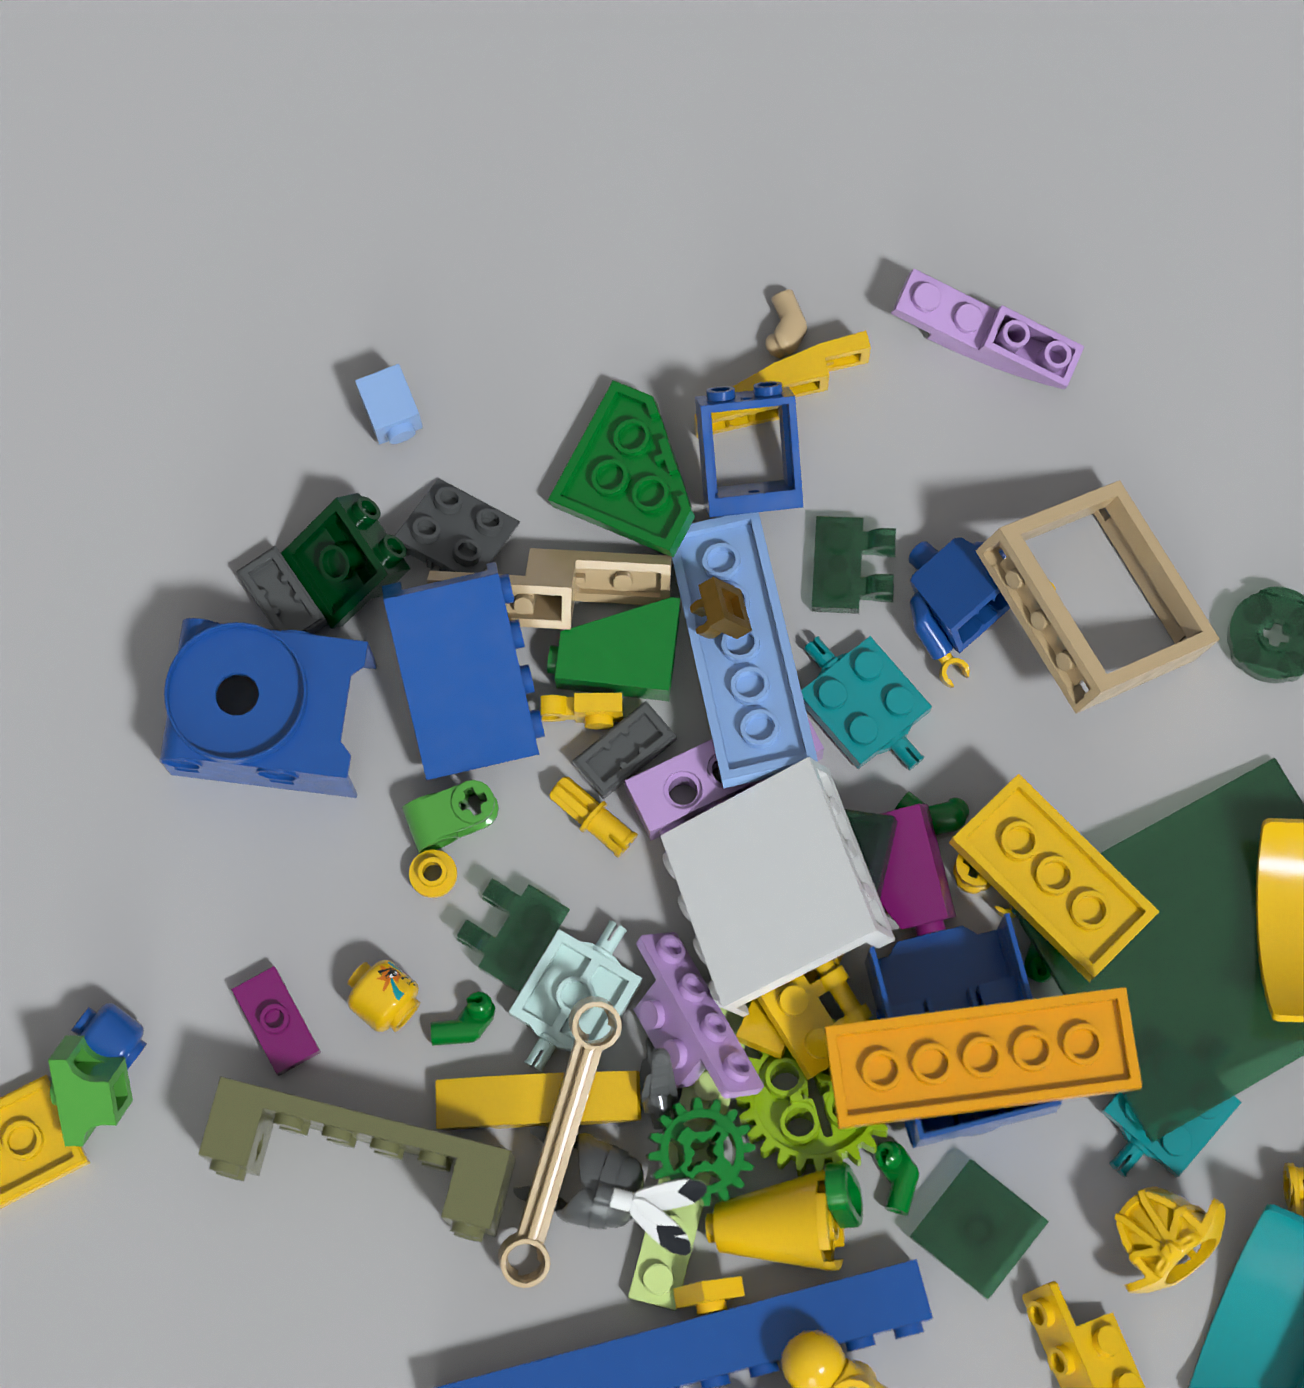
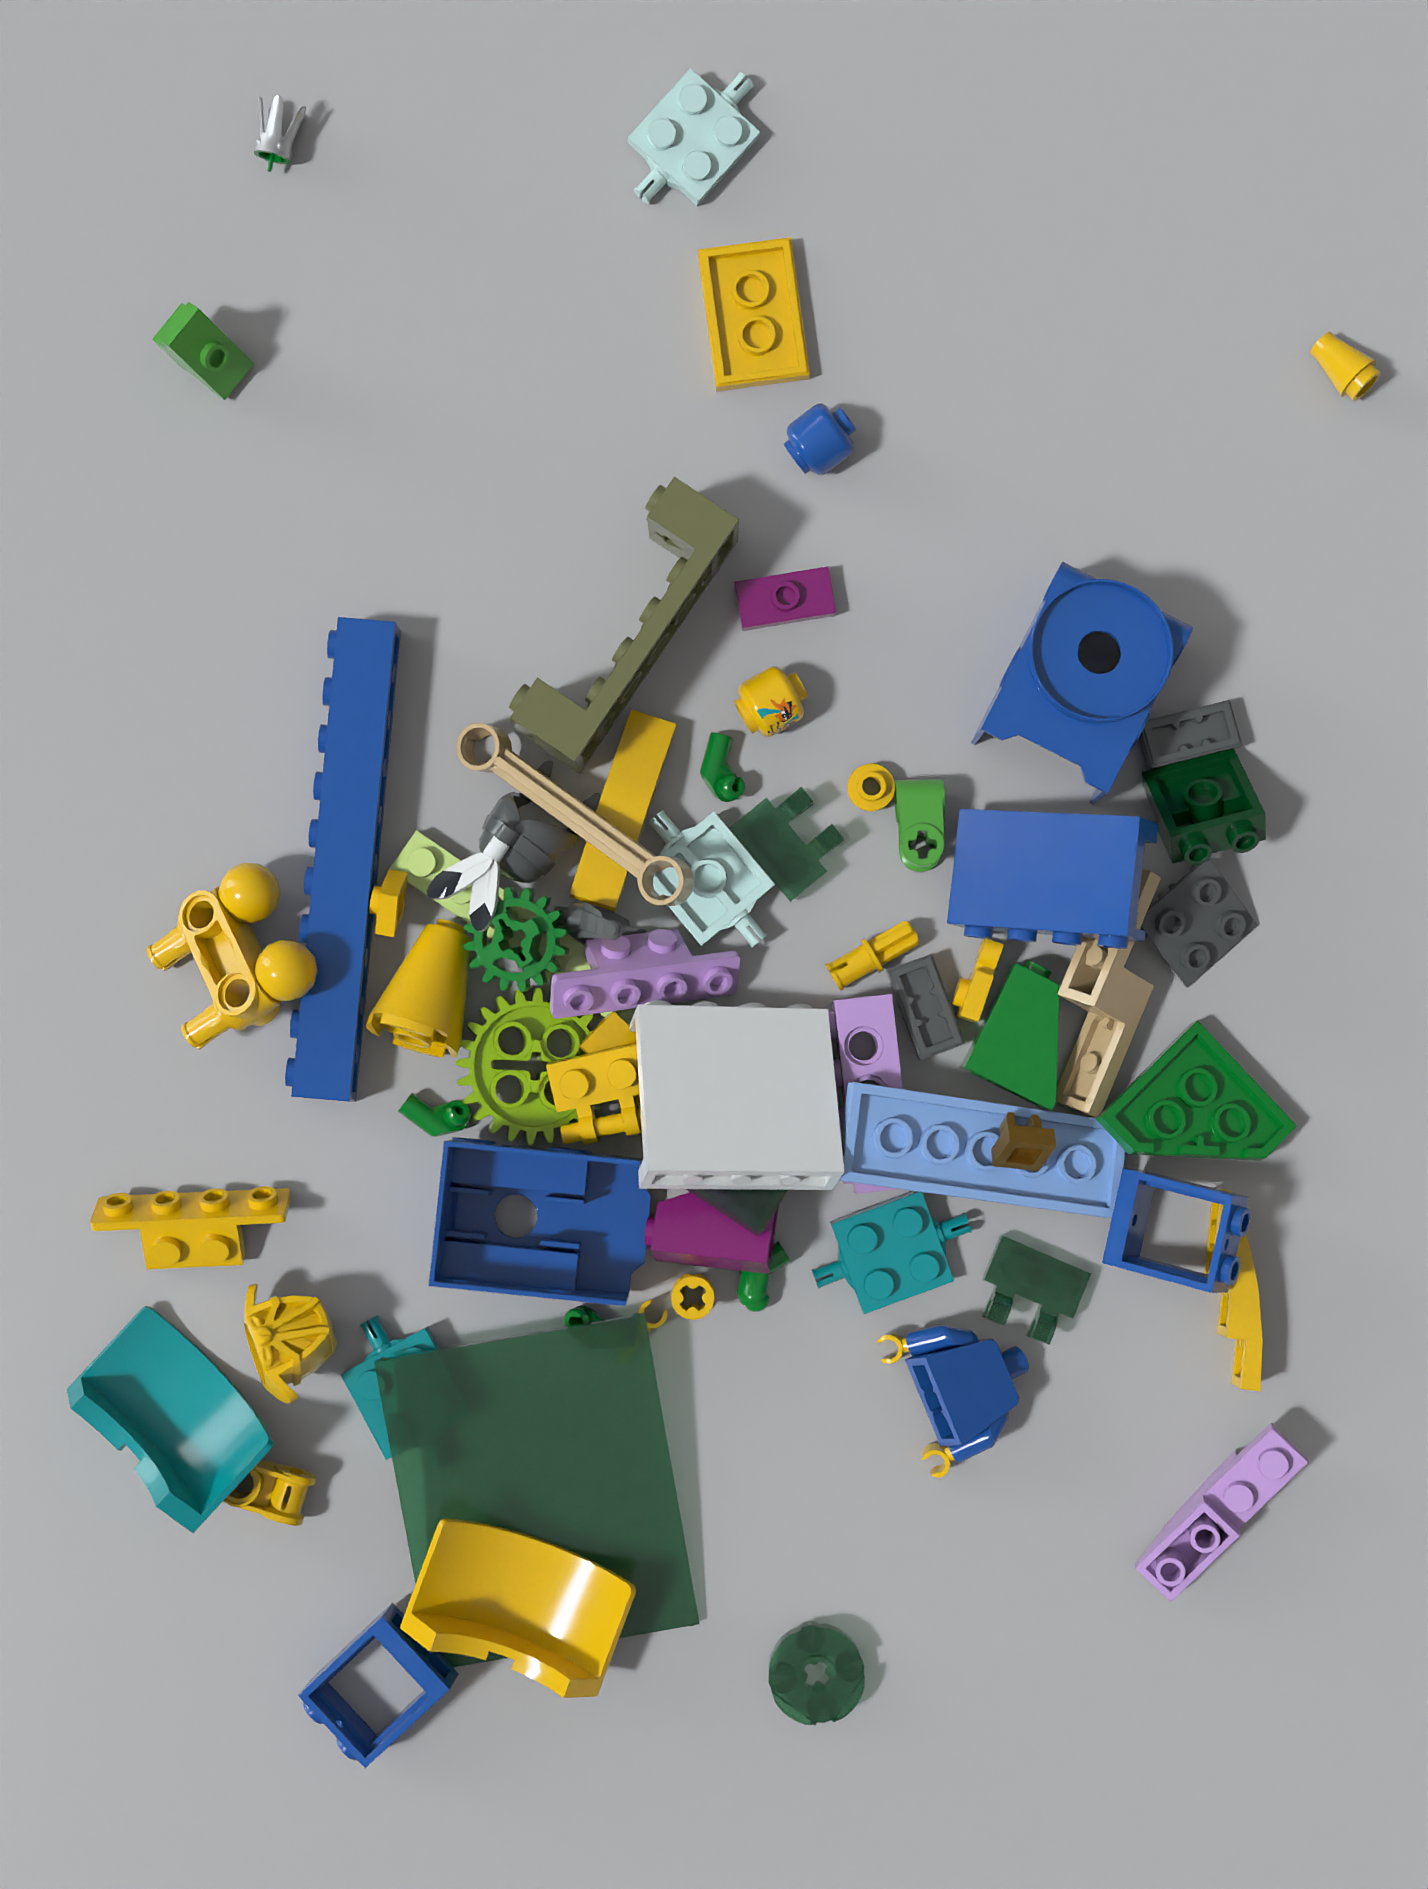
camera: 105 degrees right, 10 degrees up
(87, 1089) = (778, 402): bright green brick -> none
(389, 405) = (1345, 899): light blue brick -> none
(791, 327) = (1292, 1320): tan arm -> none
(843, 1195) = (431, 1056): green tile -> none
(978, 1229) = (360, 1171): clear green plate -> none
(982, 1058) = (494, 1227): light orange plate -> none
(1050, 623) = (902, 1454): tan window -> none
(1053, 877) = (651, 1364): yellow plate -> none

